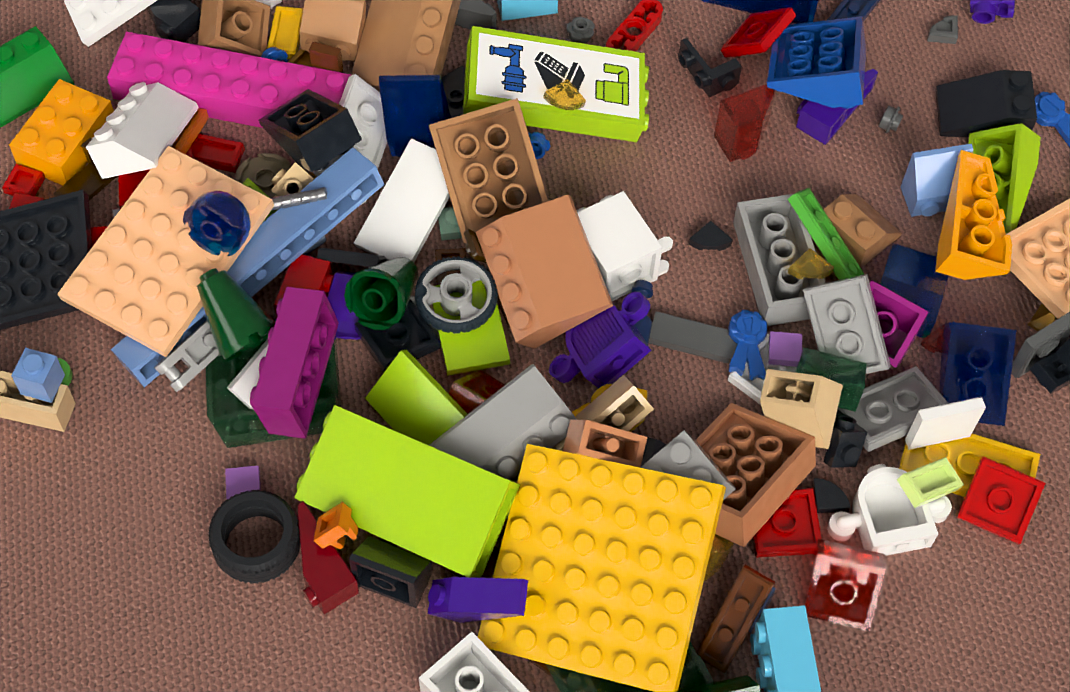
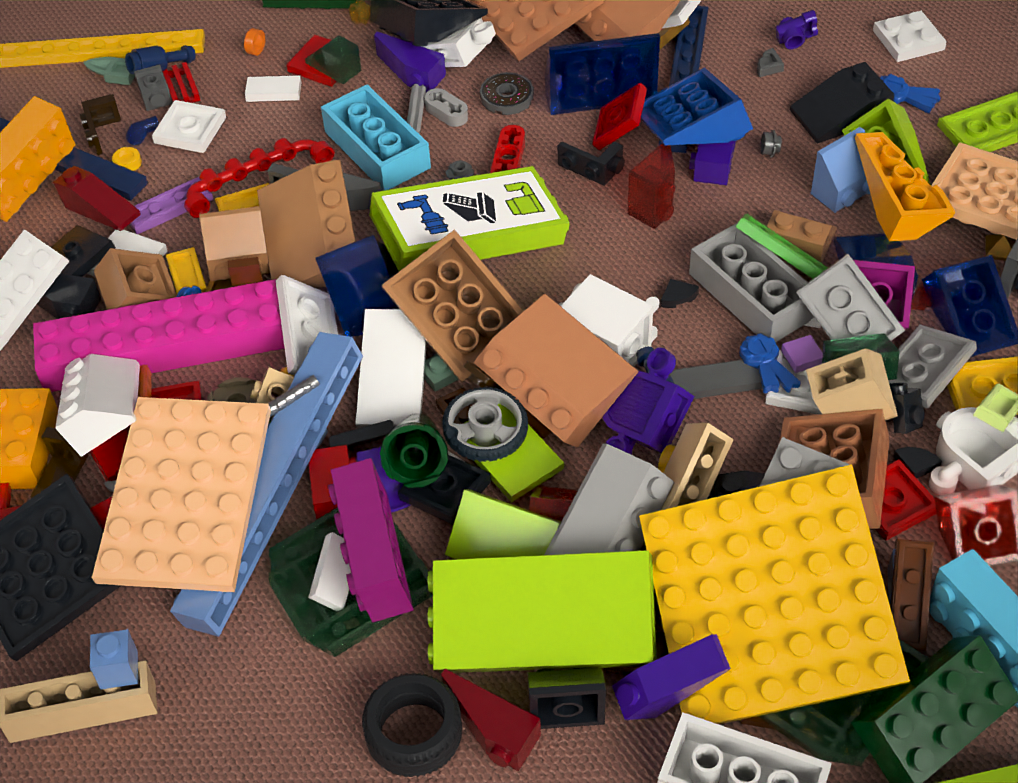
camera: 20 degrees left, 10 degrees down
(194, 351) = (261, 572): light grey plate -> none
(218, 222) = (232, 439): clear blue cylinder -> none
(232, 315) = (285, 522): dark green cone -> none
(242, 479) = (366, 680): medium lavender tile -> none
(312, 129) = (270, 332): black slope -> none
(334, 525) = (492, 674): orange tile -> none
(565, 96) = (488, 221): clear yellow tile -> none
(604, 442) = (709, 480): nougat brick -> none
(810, 266) = (789, 272): clear yellow tile -> none
(945, 423) = (982, 352): white tile -> none

